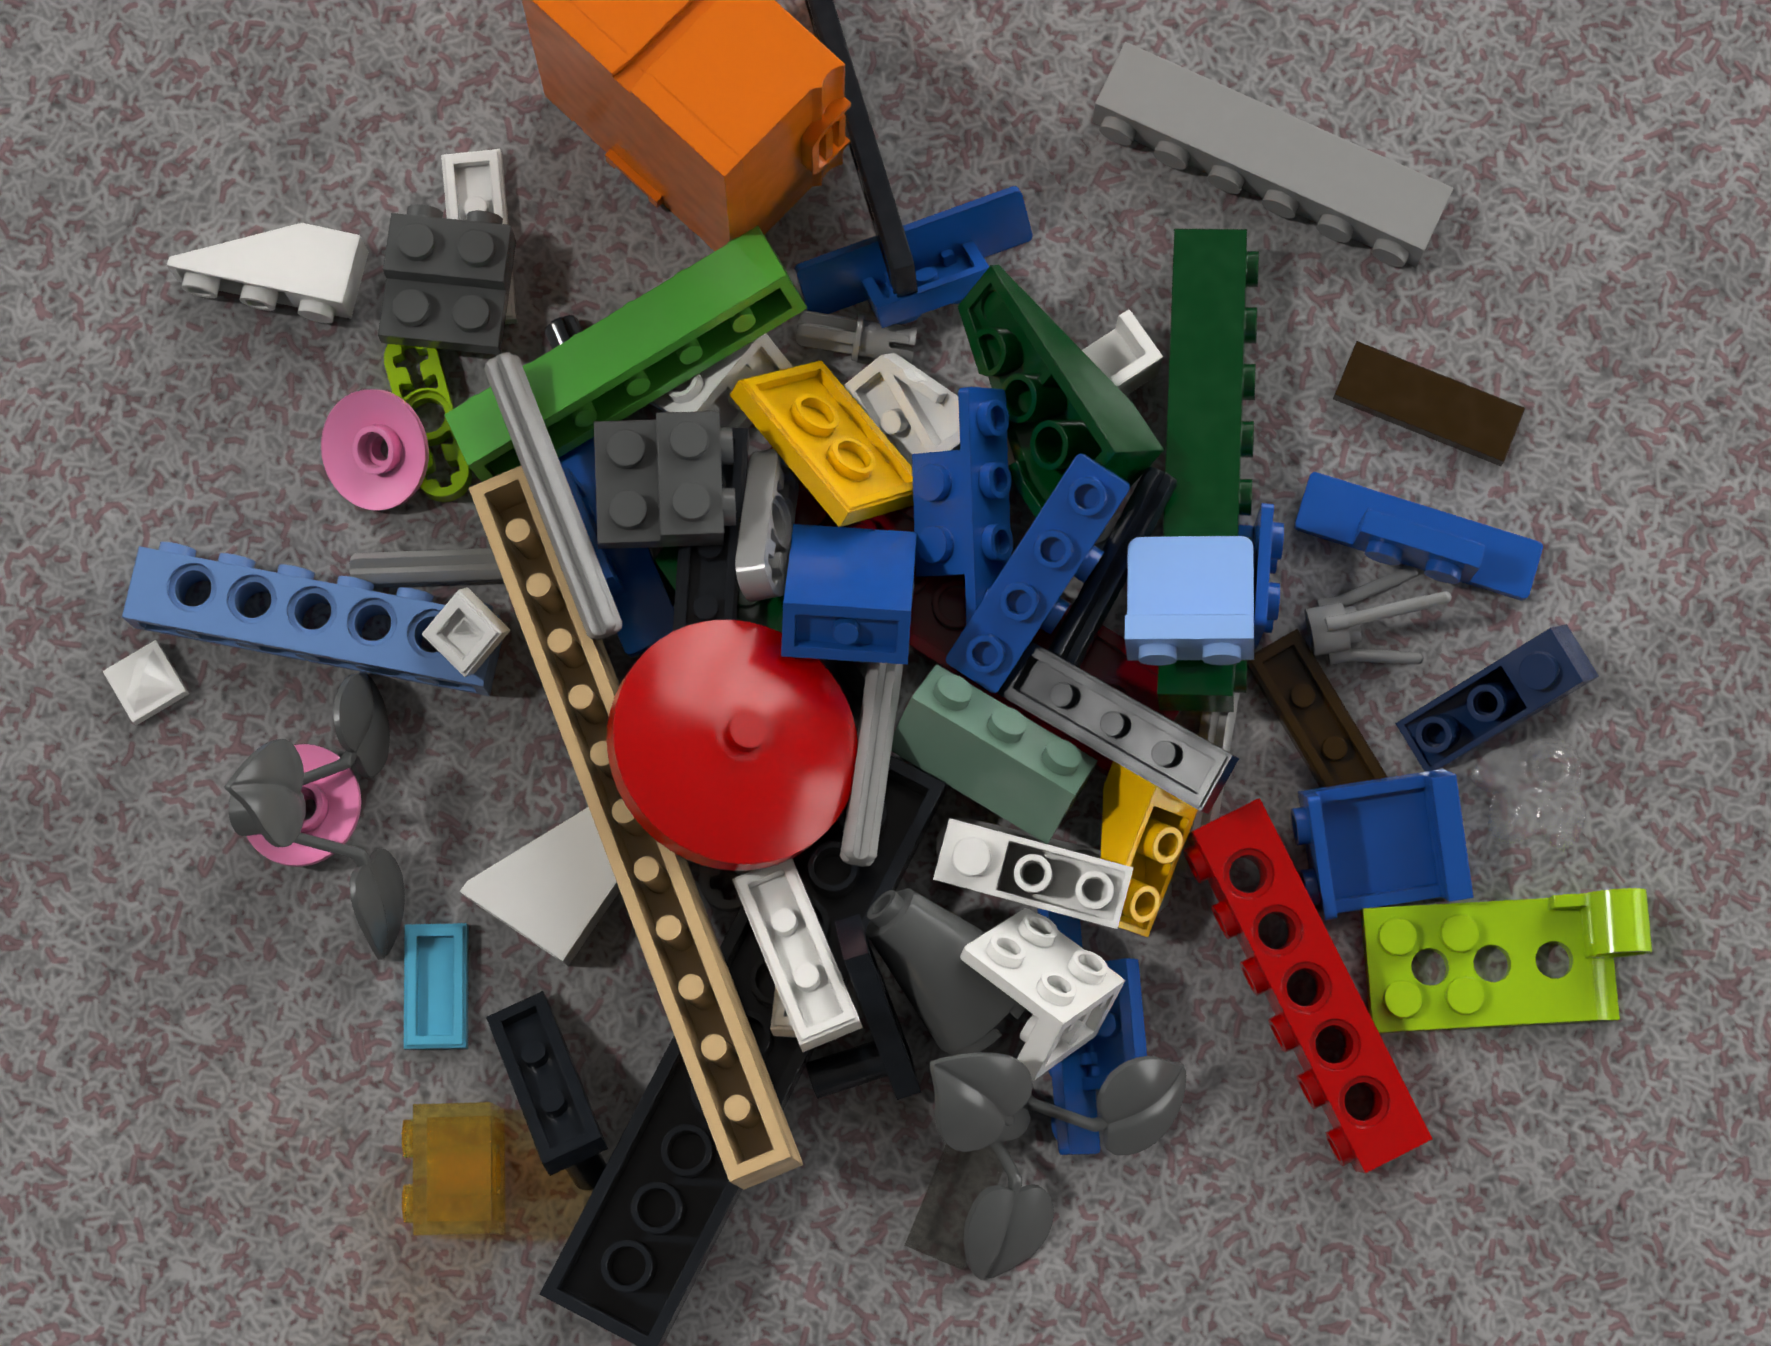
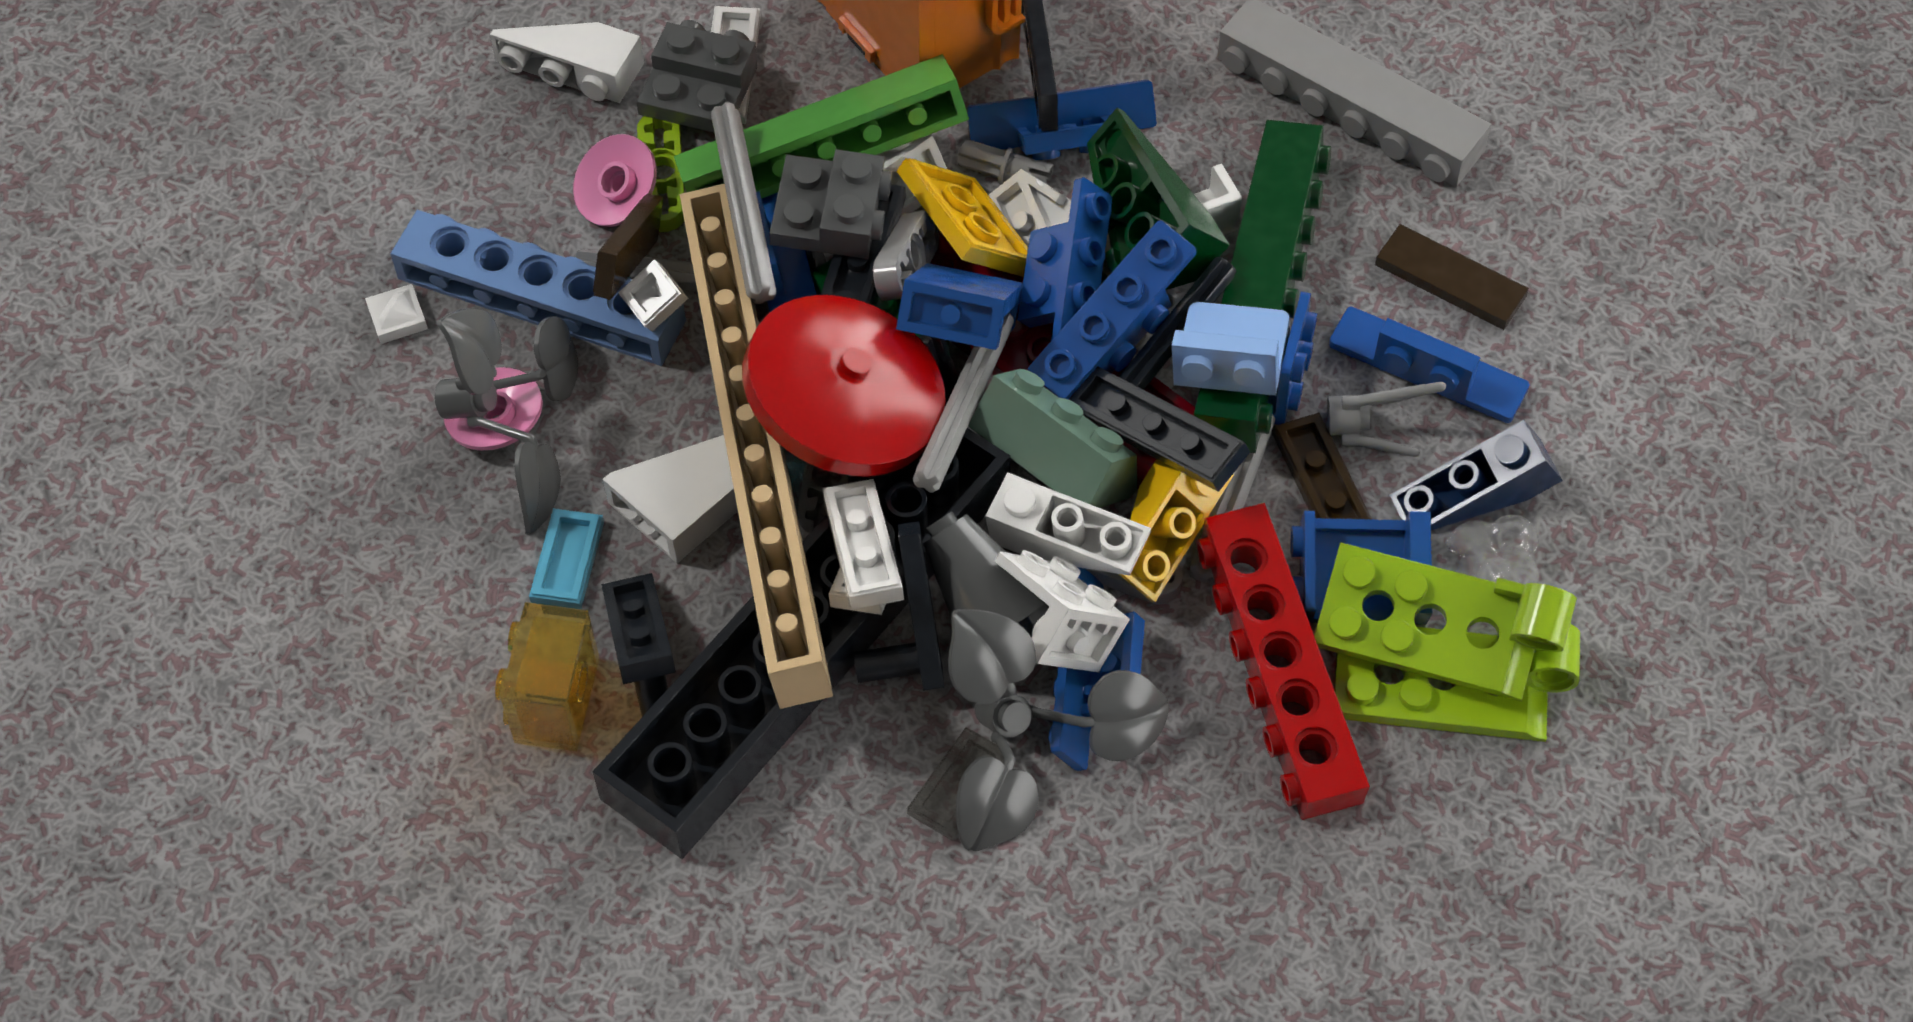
camera: 10 degrees right, 20 degrees down
(417, 562) = (627, 246): none -> dark brown tile
(1585, 901) = (1523, 615): none -> lime hinge

